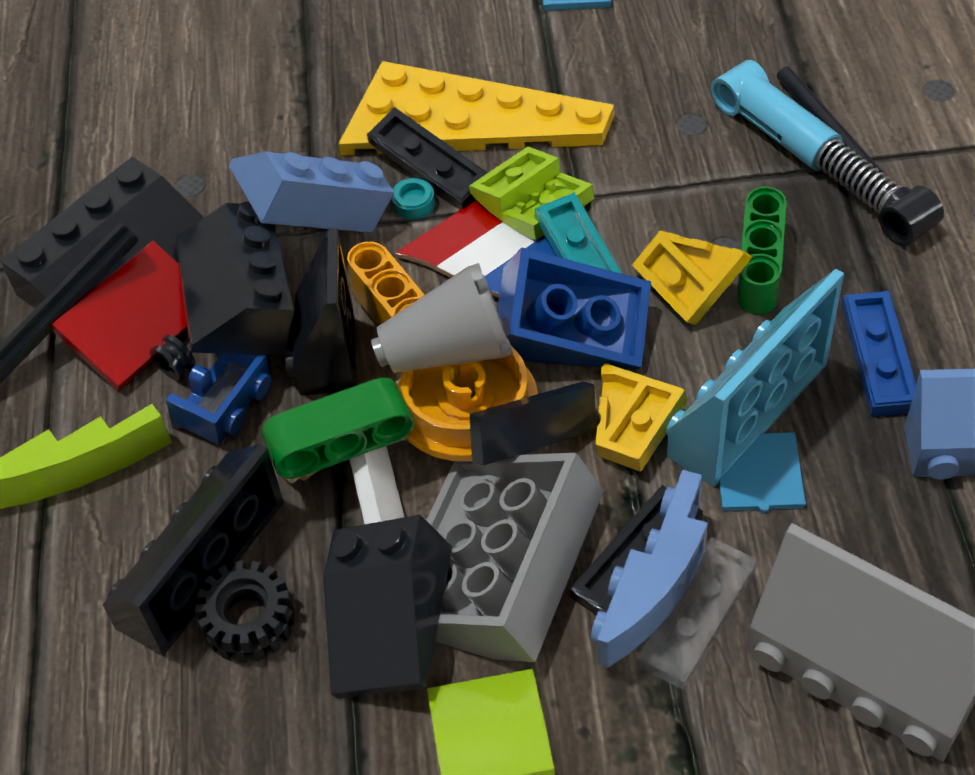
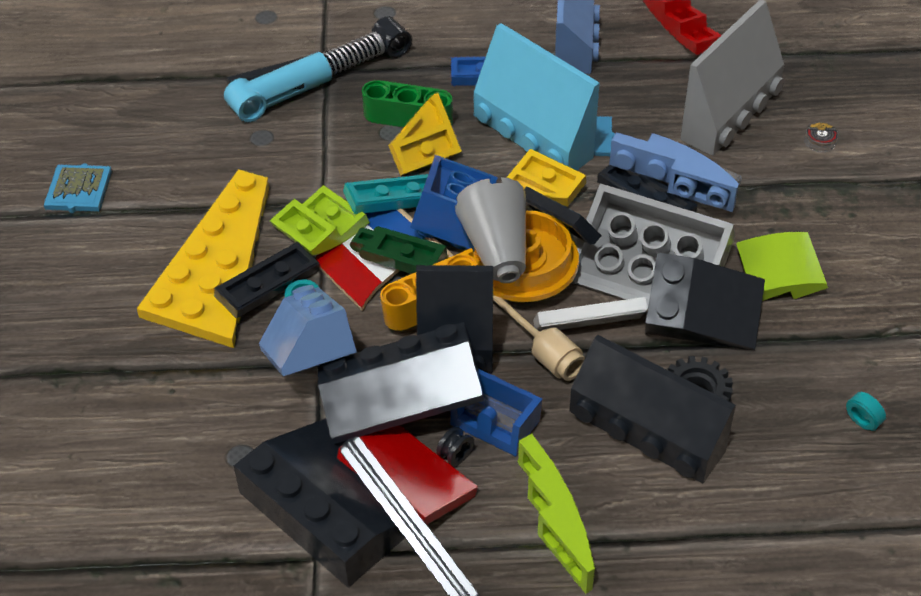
camera: 90 degrees left, 5 degrees down
(337, 428) = (566, 308): green beam -> none
(481, 245) = (396, 249): none -> dark green hinge

